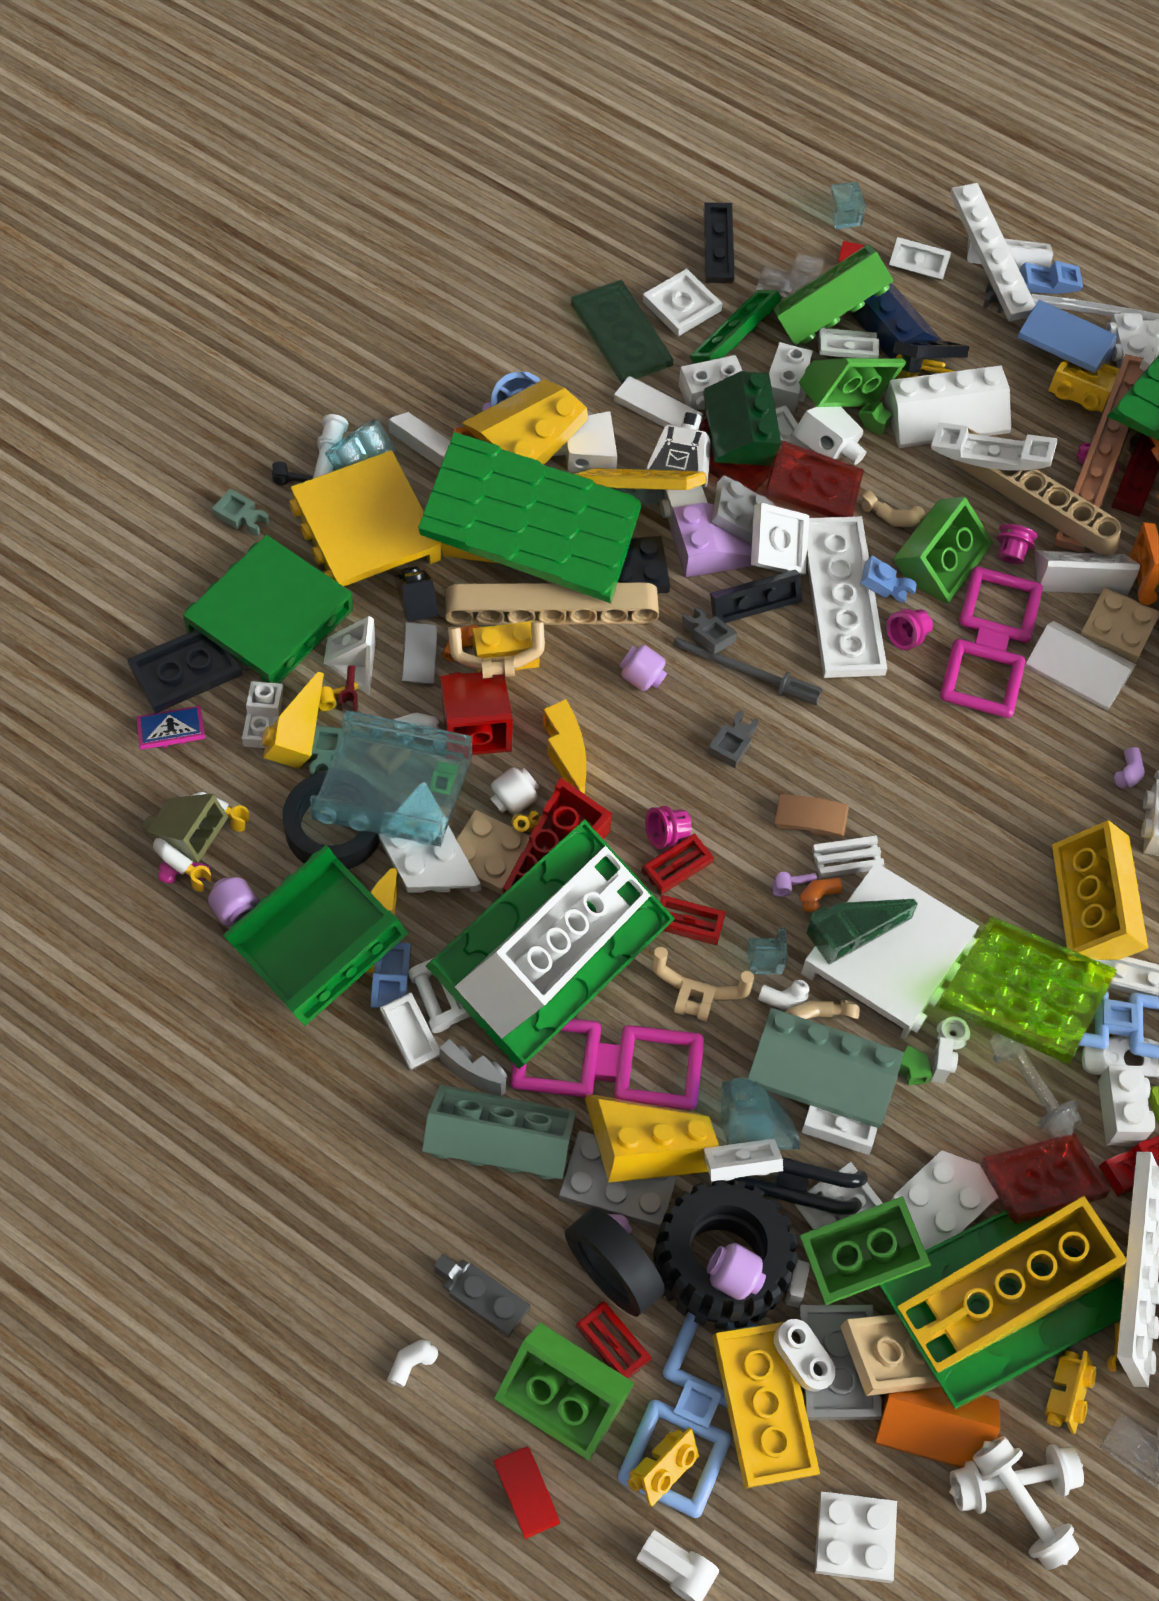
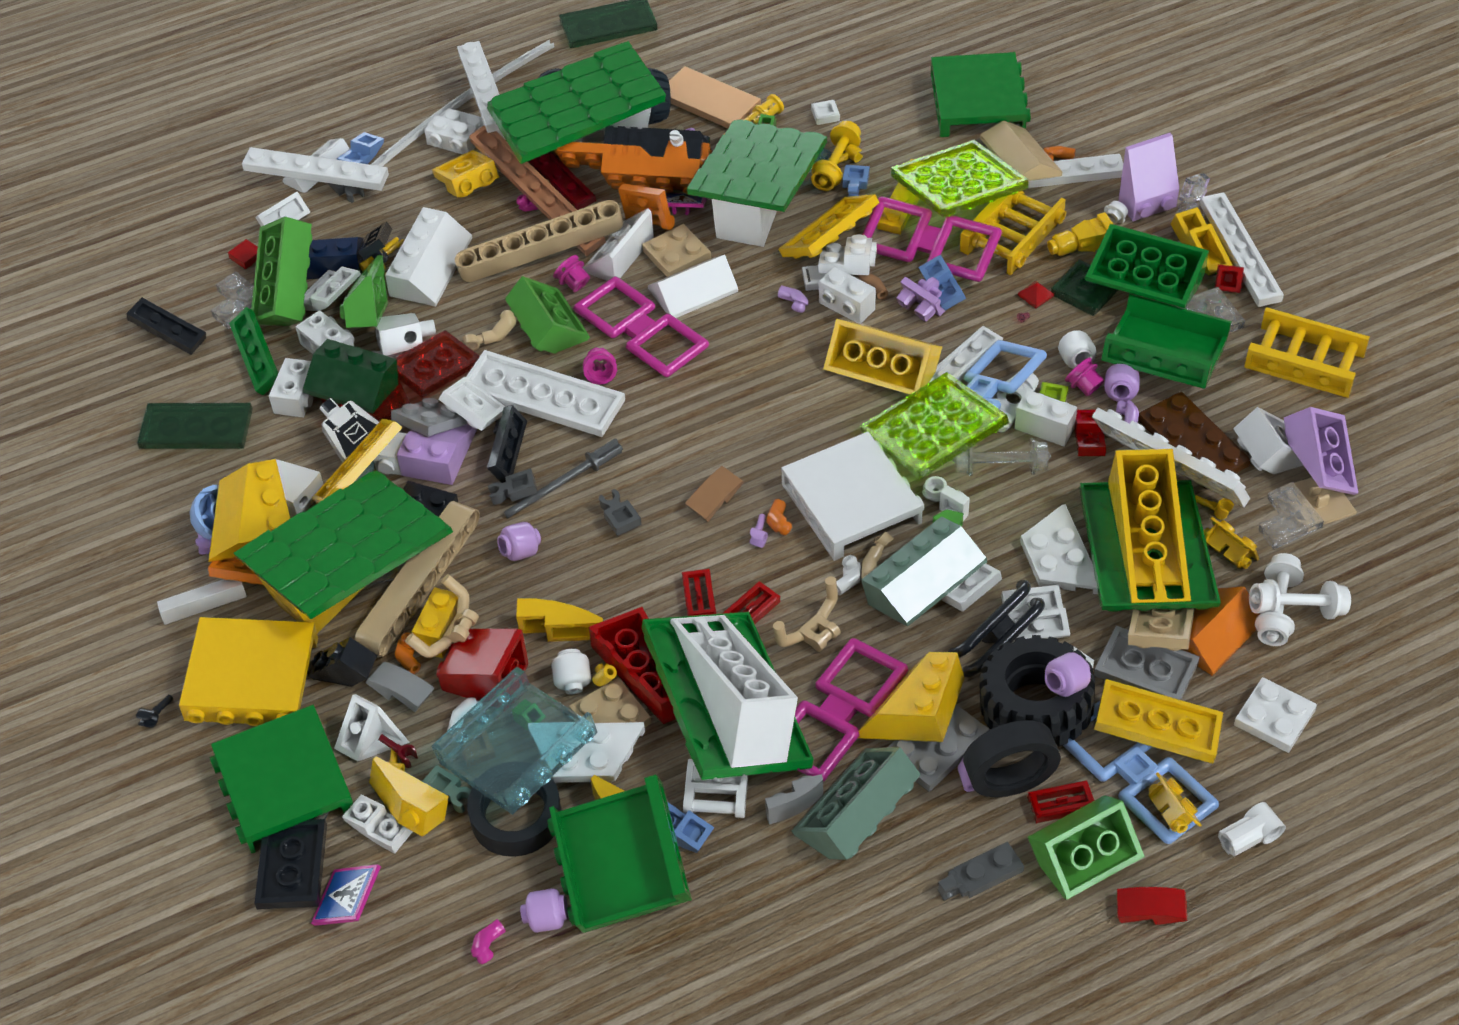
camera: 55 degrees left, 10 degrees down
(188, 828) = (459, 918): olive torso -> none
(238, 510) = (162, 763): sand green plate -> none
(332, 433) = (150, 669): white pin -> none
(360, 445) = (173, 643): clear light blue brick -> none
(408, 1357) = (1007, 942): white arm -> none
(410, 1031) = (736, 830): white tile -> none
(652, 403) = (285, 433): white tile -> none
(668, 821) = (658, 585): dark pink piece -> none
(682, 302) = (202, 374): white plate -> none
(743, 1159) = (978, 641): white plate -> none
(755, 1115) = (941, 629): clear light blue slope -> none
(768, 954) = (810, 568): clear light blue panel -> none
(802, 1357) = (1136, 678): white plate -> none
(820, 850) = (764, 472): white tile -> none
(849, 205) = (202, 230): clear light blue panel -> none
(855, 924) = (828, 499): clear green slope -> none
(864, 1250) = (1085, 601): bright green slope -> none
(875, 417) = (401, 303): bright green piece -> none
(883, 580) = (549, 361): medium blue plate -> none
(993, 452) = (497, 242): white slope -> none
(1044, 1177) = (1075, 484): clear red plate -> none
(1068, 336) = (425, 161): medium blue slope -> none

